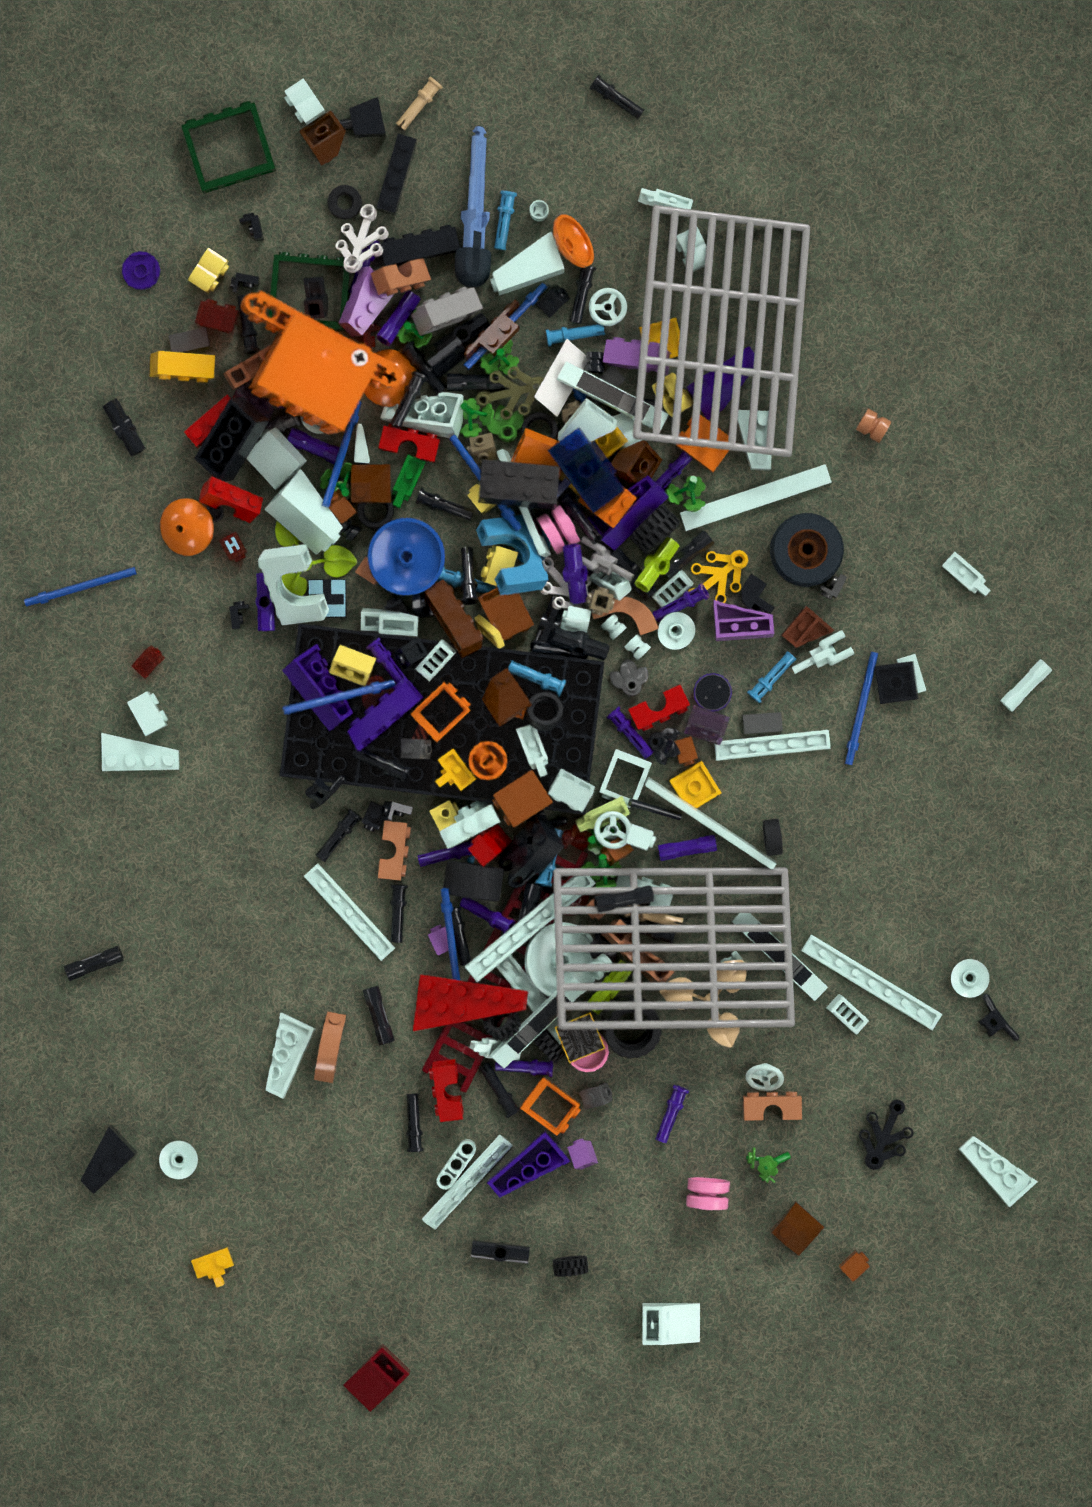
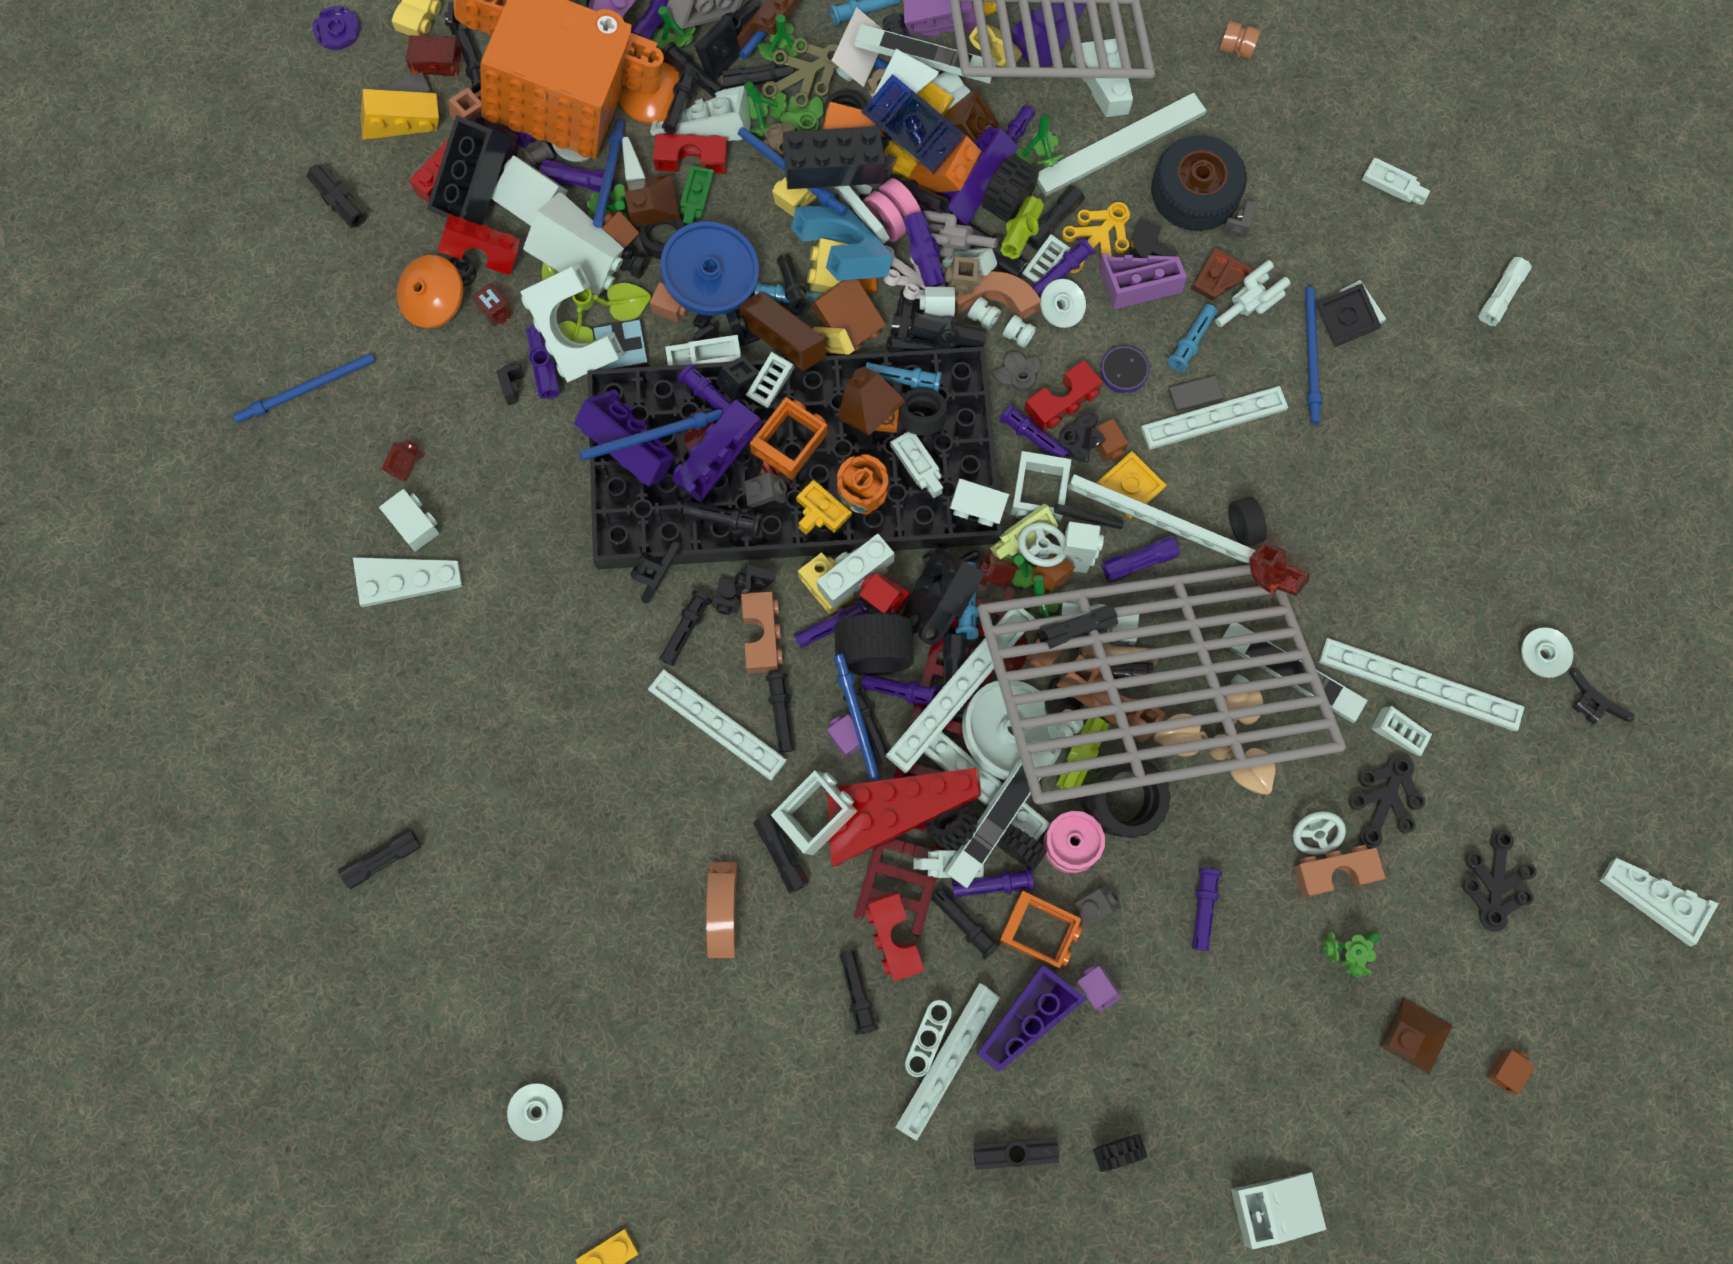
camera: 10 degrees left, 15 degrees down
(109, 1157) = (433, 1132): black wedge -> none
(289, 1049) = (667, 923): light aqua wing -> none
(352, 665) = (664, 400): light yellow brick -> none
(391, 1001) = (792, 827): none -> light aqua window
(435, 502) = (736, 213): black pin -> none
(522, 799) = (917, 525): dark orange brick -> none
(580, 1042) = (1062, 824): tile -> none
(707, 457) = (1047, 96): orange brick -> none
(707, 1195) = (1286, 1007): bright pink wheel -> none
(709, 725) = (1129, 403): clear purple brick -> none
(780, 881) = (1273, 574): none -> clear red brick
(824, 1060) = (1389, 798): none -> black plant

